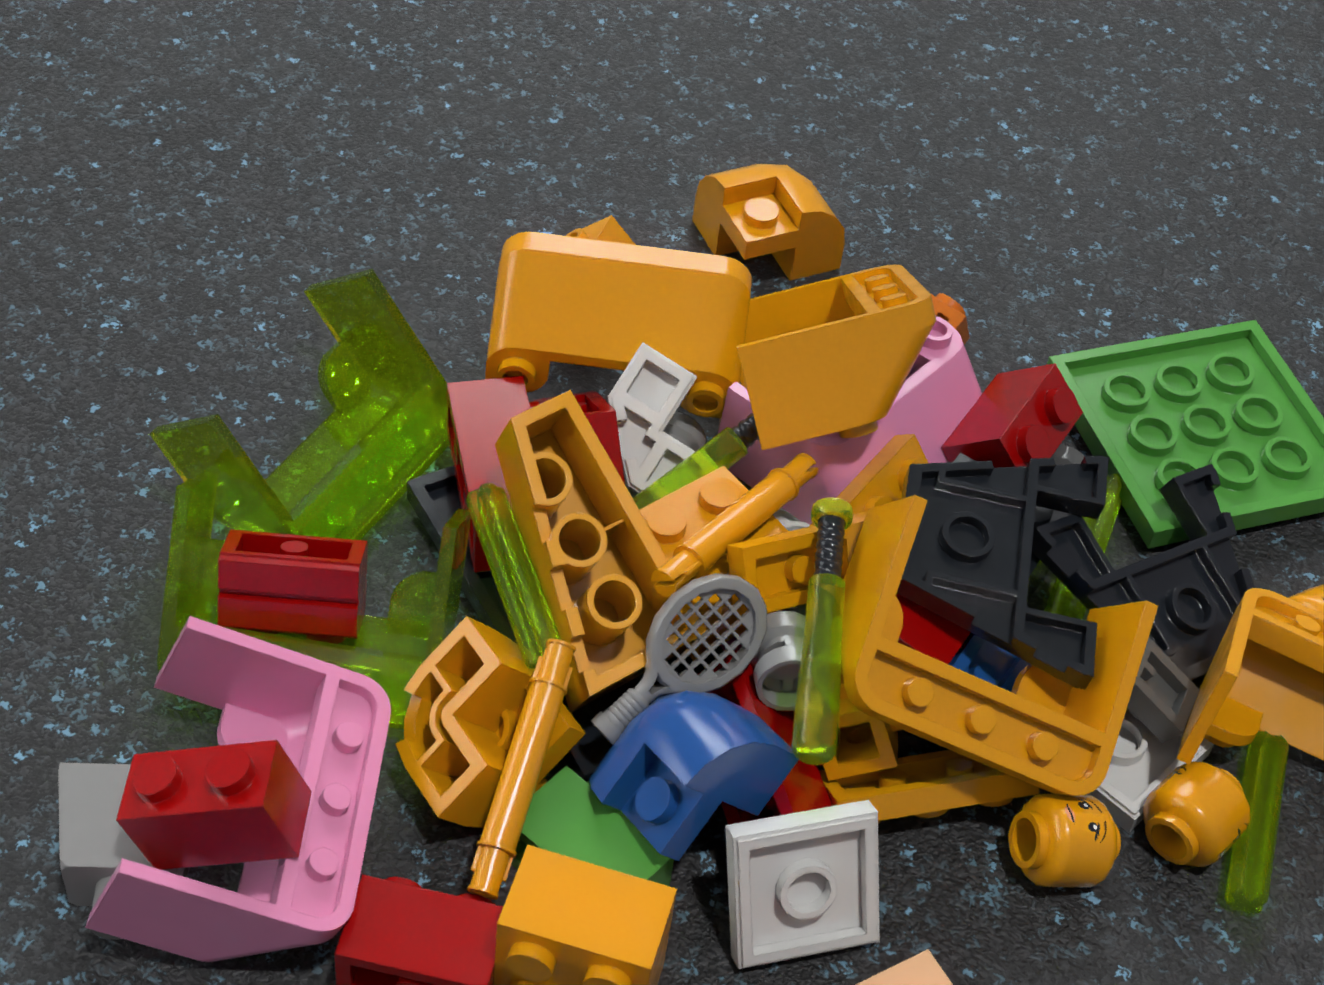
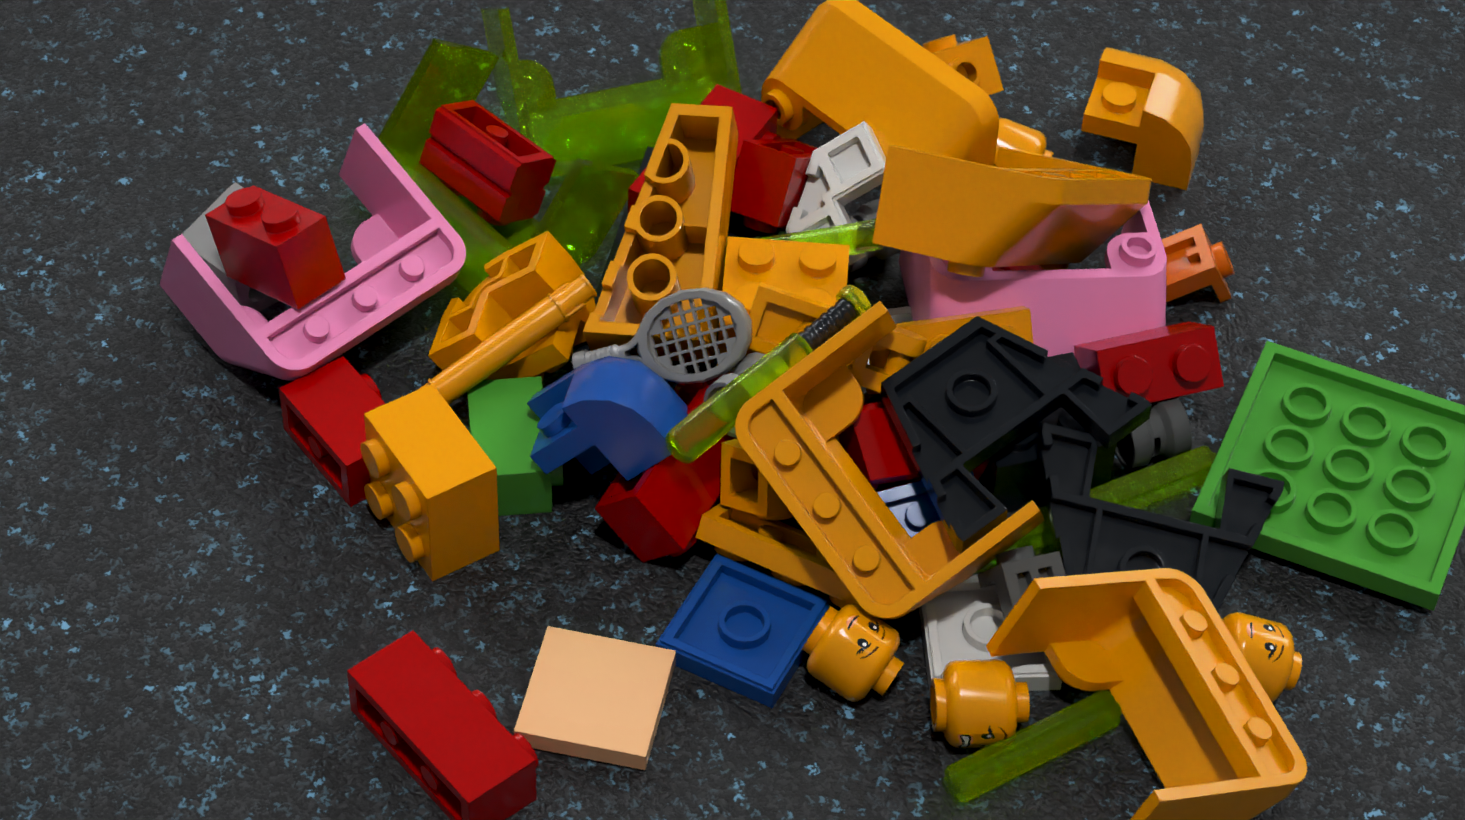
camera: 45 degrees right, 0 degrees up
(512, 571) = (611, 228): clear neon green axle -> none
(734, 524) = (795, 276): light orange piece -> none
(803, 883) = (617, 544): white tile -> none
(951, 887) = (743, 629): none -> blue tile

